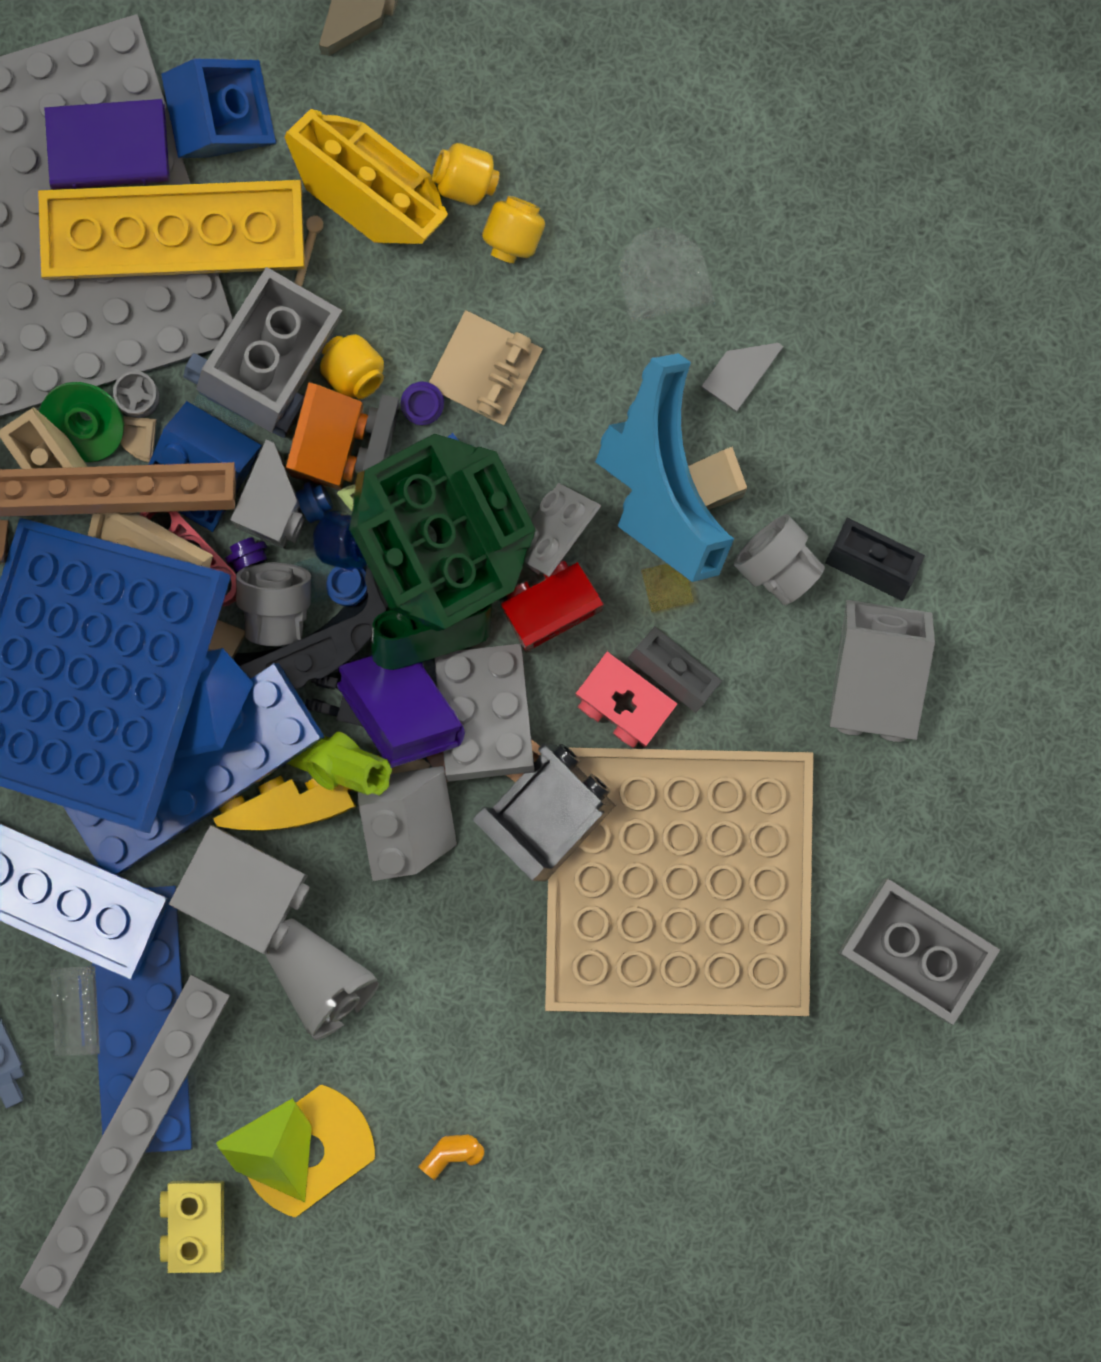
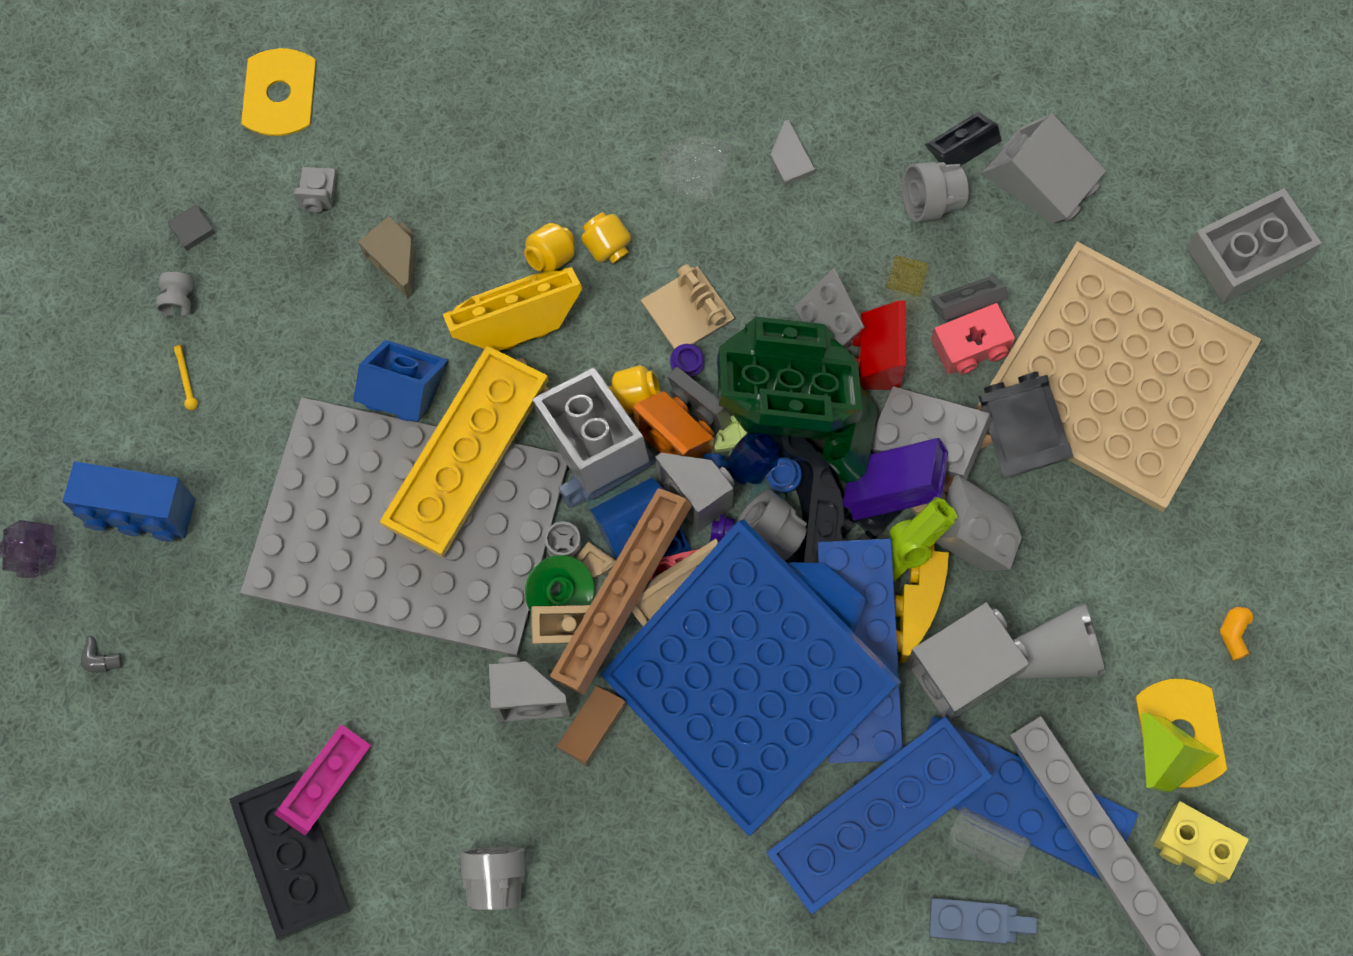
camera: 55 degrees left, 15 degrees down
(107, 144) = (377, 459): dark purple piece -> none
(650, 459) = (815, 229): dark azure arch -> none
(718, 478) = (856, 200): tan slope -> none

